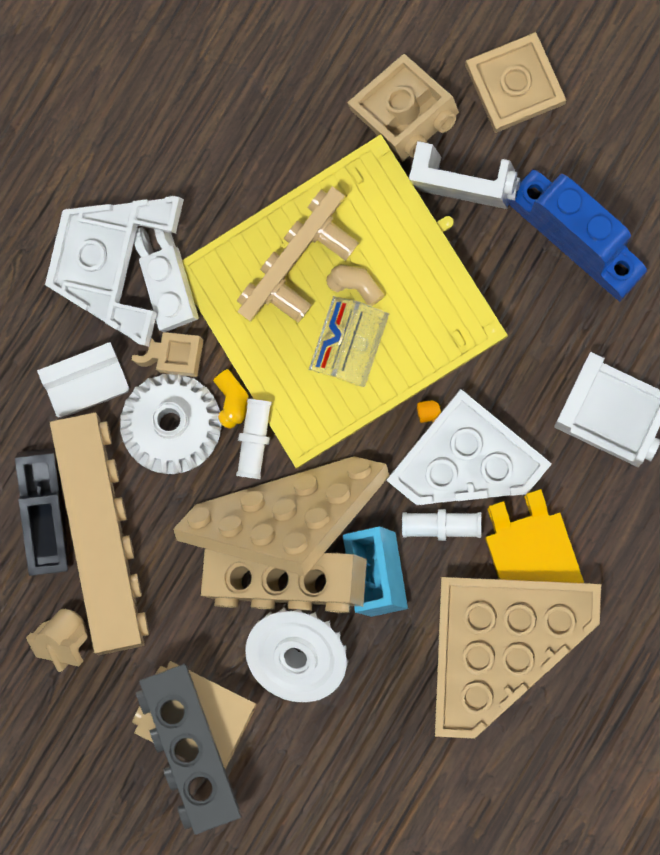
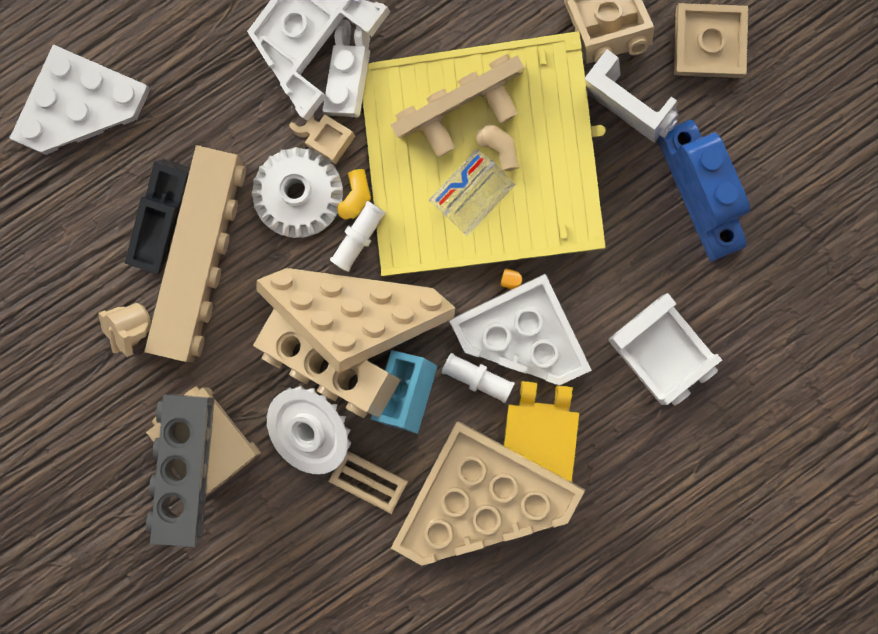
camera: 25 degrees right, 5 degrees up
(84, 380) = (243, 124): white panel -> none
(393, 682) = (395, 494): none -> tan tile

